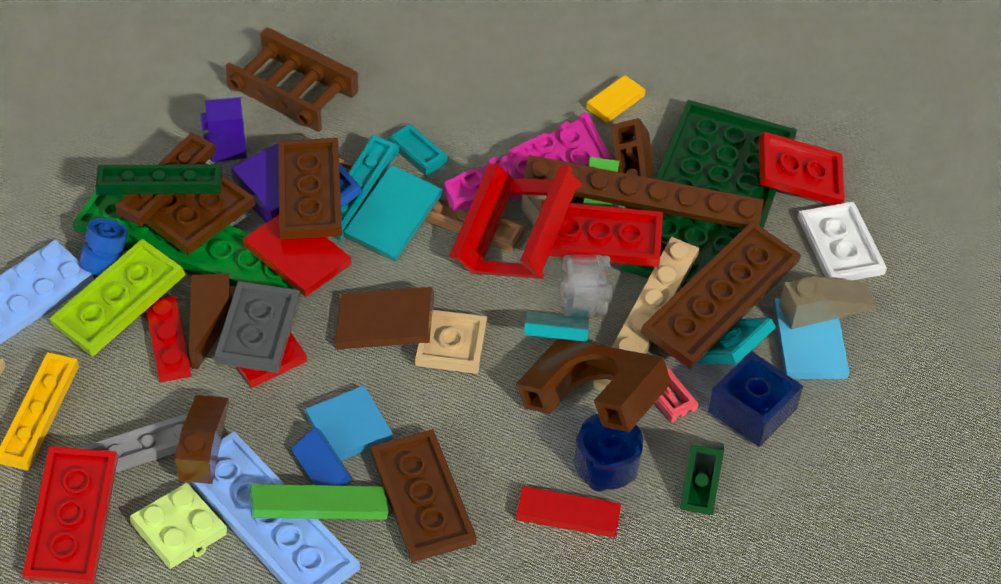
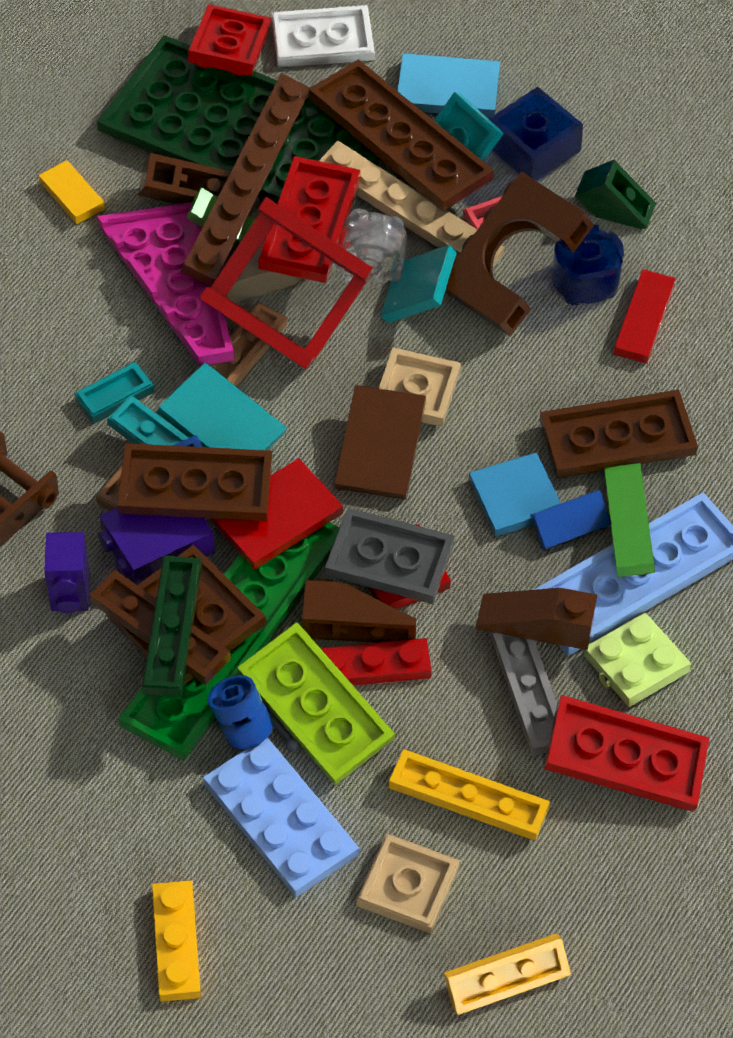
camera: 80 degrees left, 5 degrees up
(823, 299) = (416, 59): dark tan slope -> none

